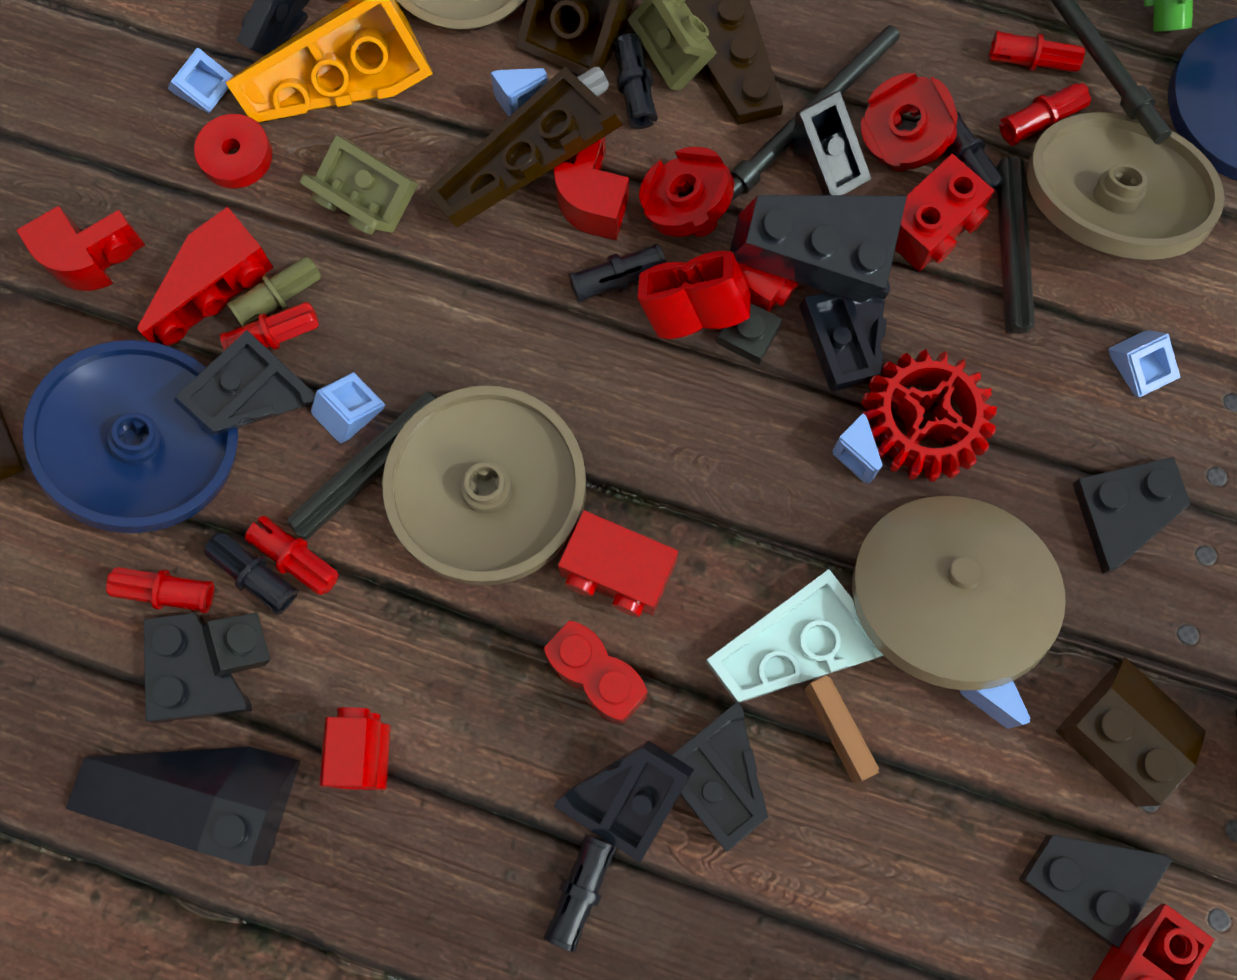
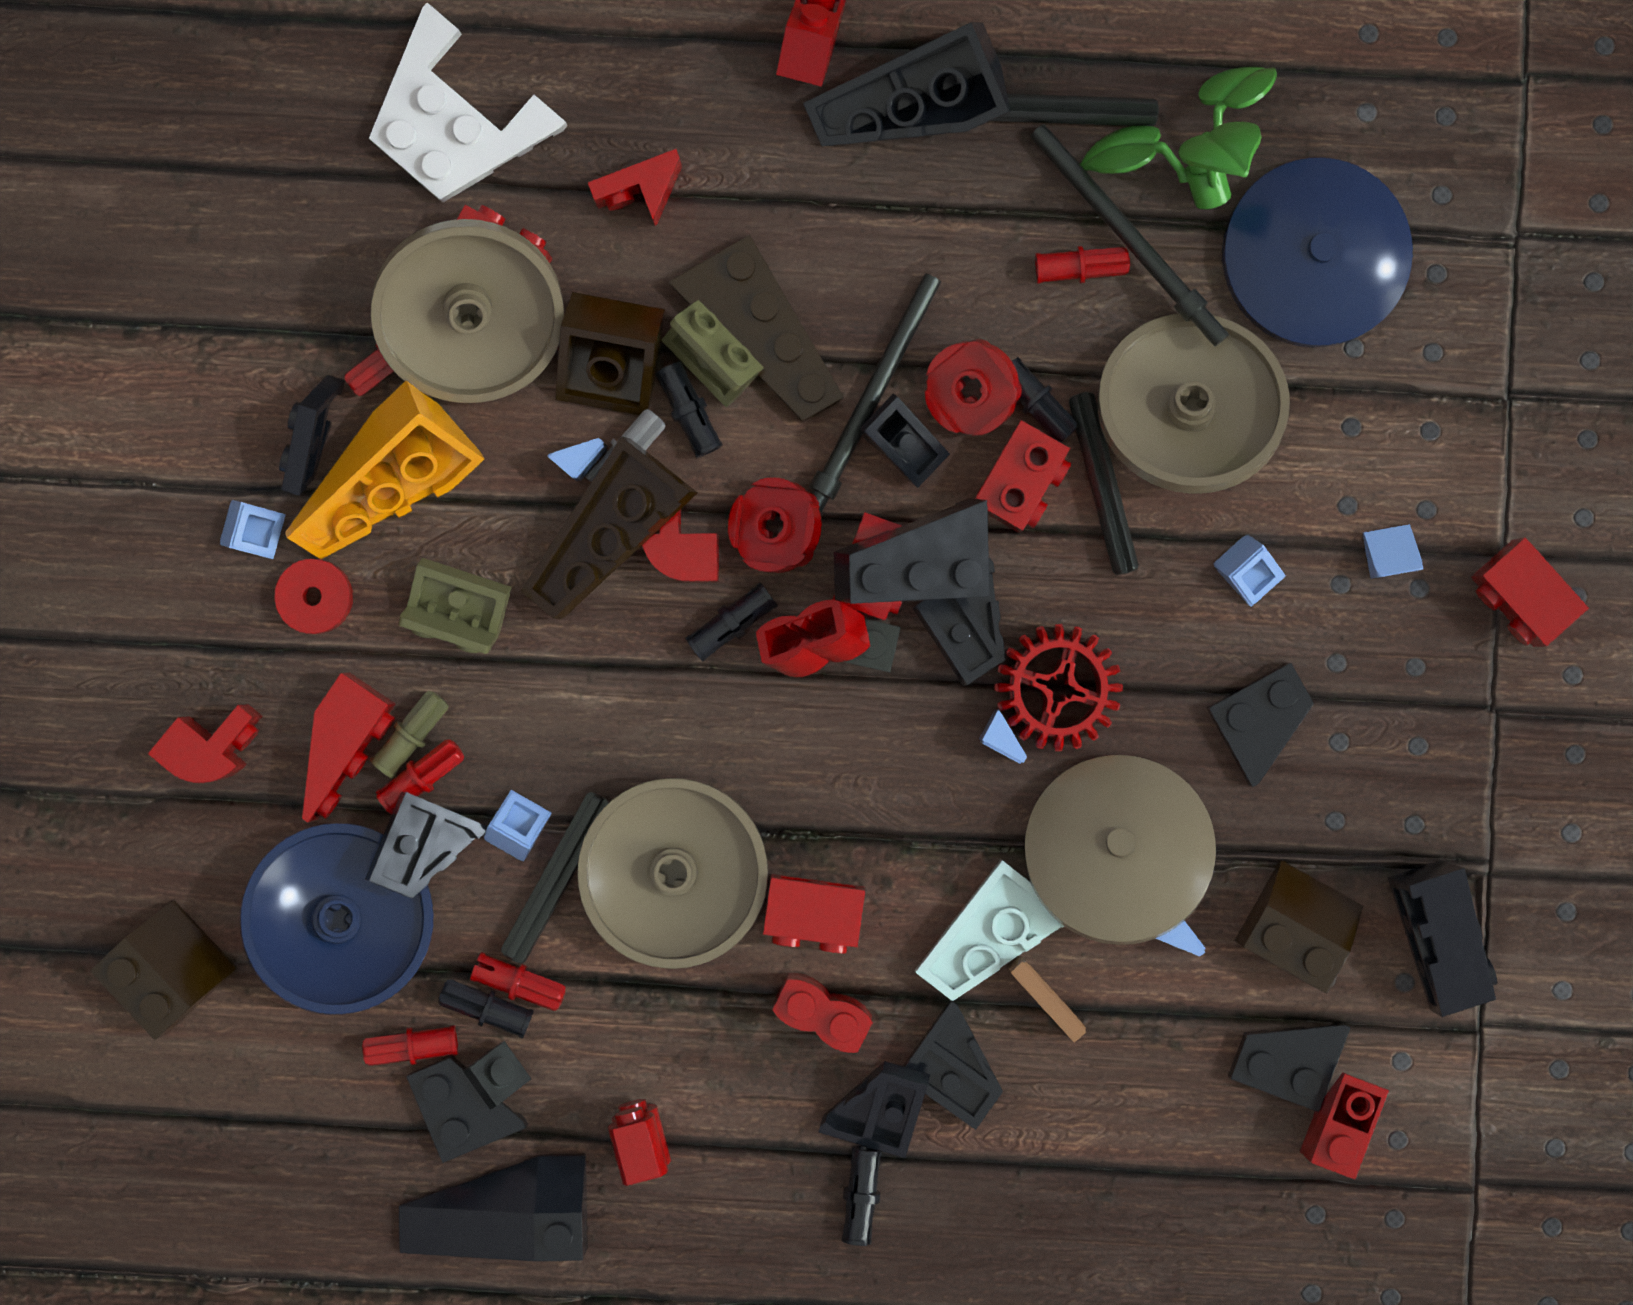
camera: 20 degrees left, 15 degrees up
(1044, 113) = (1104, 331): red axle -> none

